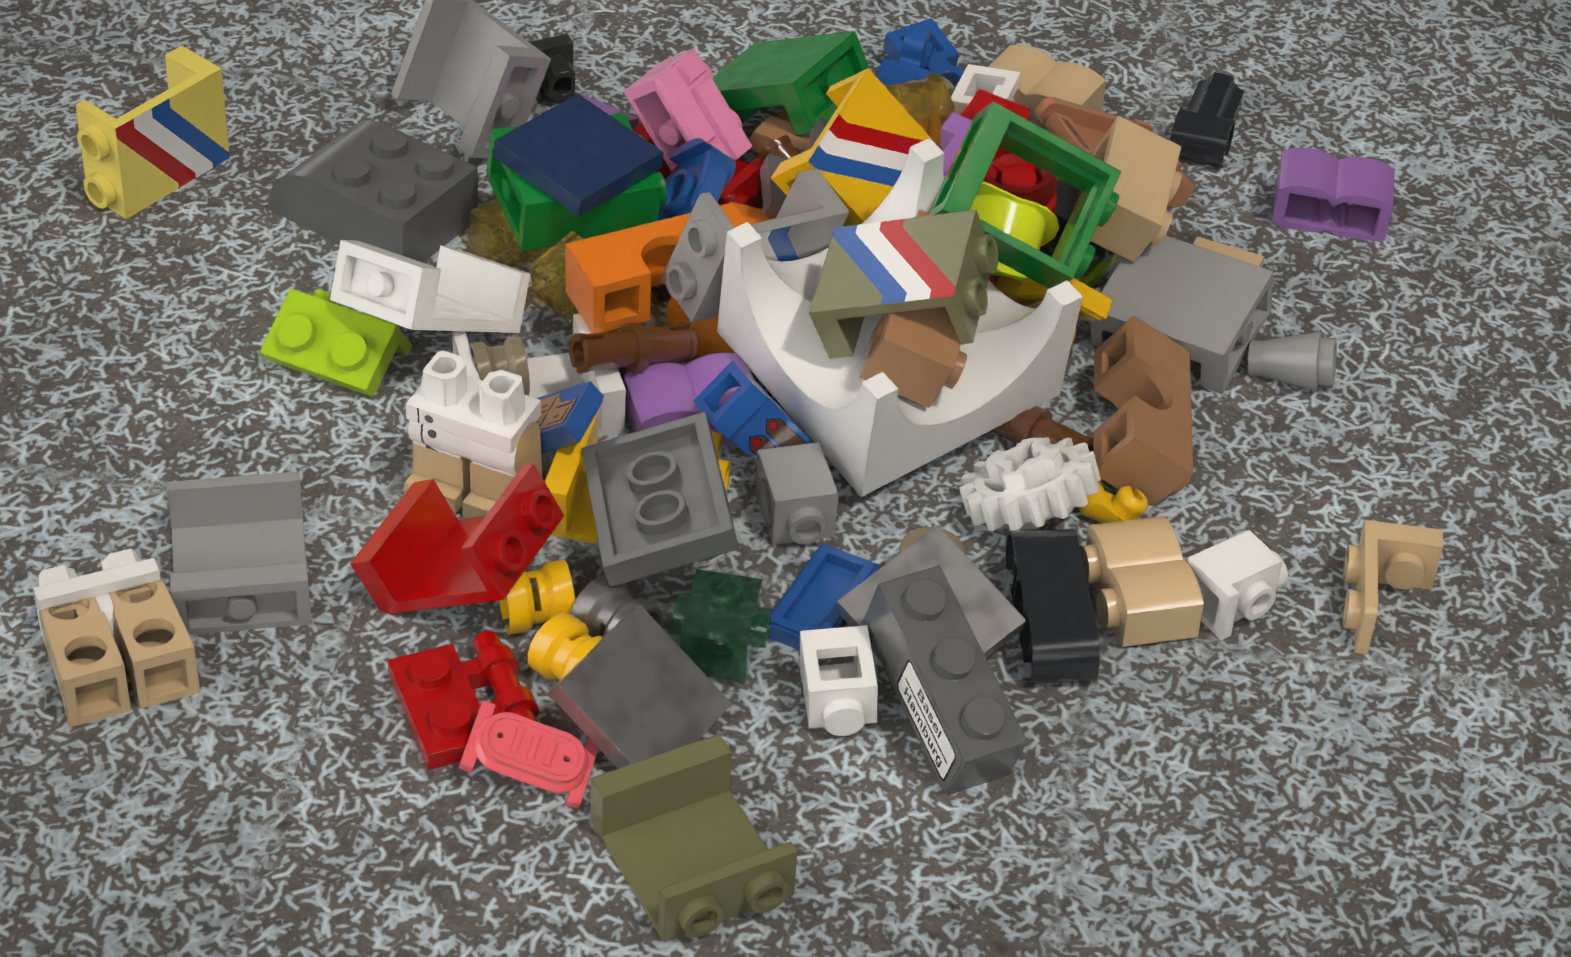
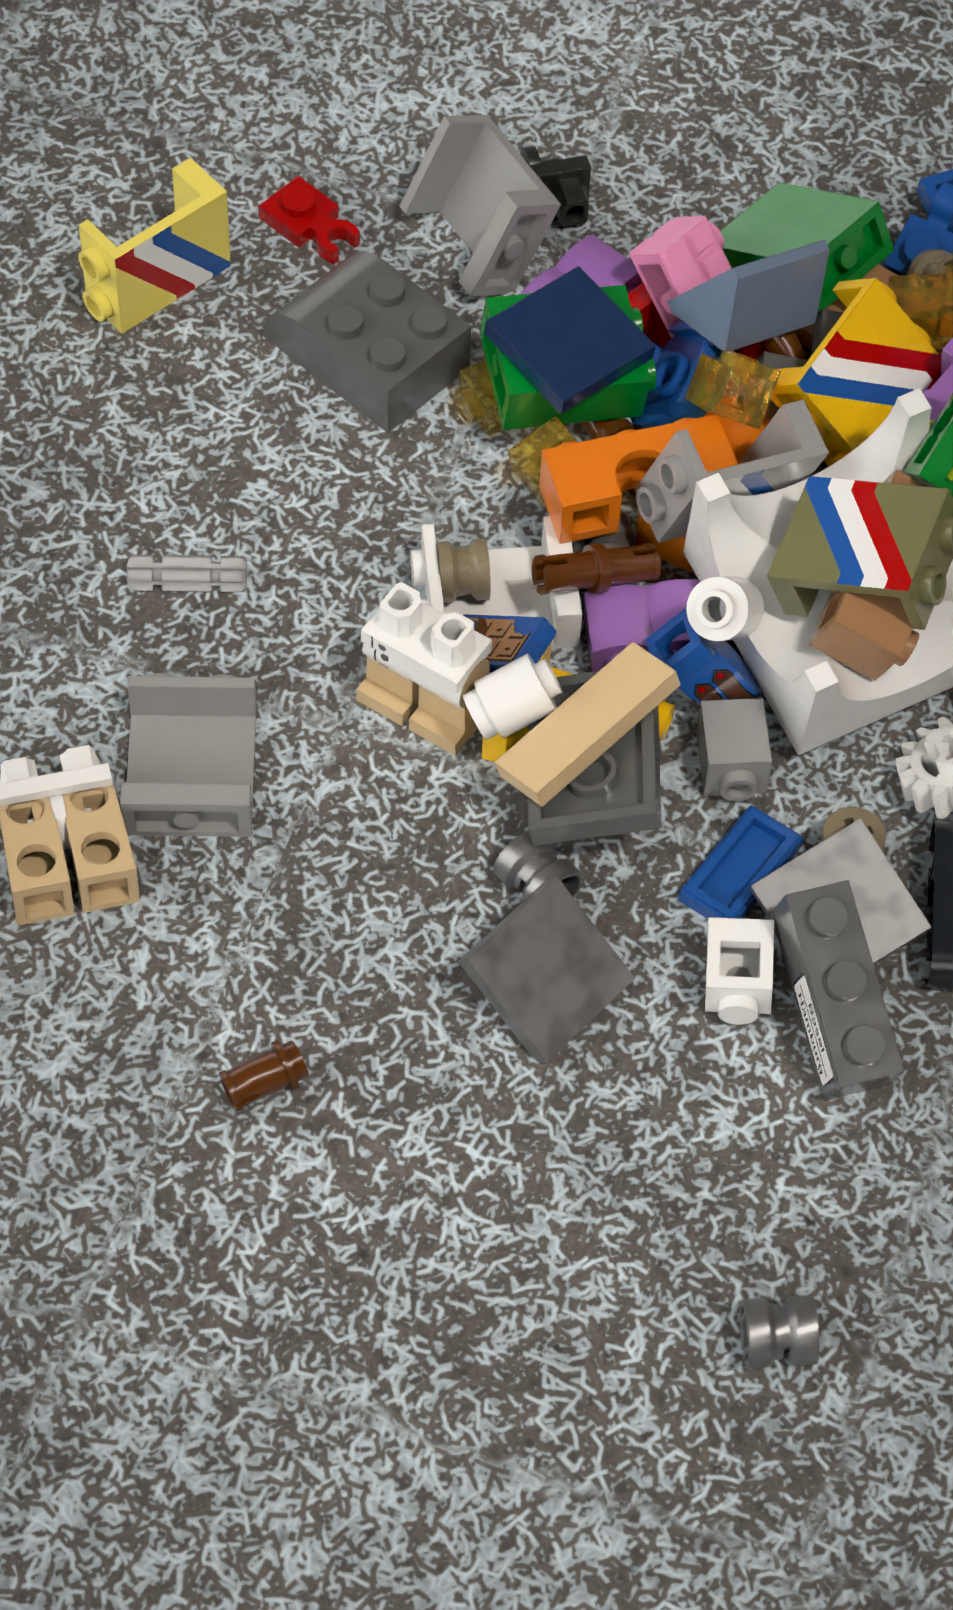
camera: 10 degrees right, 15 degrees up
(216, 403) = (187, 573): none -> light grey axle
(299, 109) = (304, 214): none -> red plate
(333, 341) = (306, 515): lime bracket -> none
(354, 829) = (264, 1075): none -> reddish brown pin
(433, 560) = (390, 787): red panel -> none
(441, 698) = (363, 948): red plate -> none
(454, 296) = (439, 487): white panel -> none
(530, 753) = (435, 1013): coral piece -> none
(538, 597) = (479, 837): yellow wheel -> none
(560, 646) = (482, 902): yellow wheel -> none
(571, 450) = (513, 697): none -> white brick
(648, 467) = (587, 724): none -> tan tile
(688, 840) = (572, 1127): olive panel -> none
(722, 610) = (636, 894): clear green brick -> none
(746, 174) = (733, 387): none -> clear yellow brick
(754, 103) = (757, 298): none -> sand blue slope
(786, 360) = (742, 603): none -> white brick

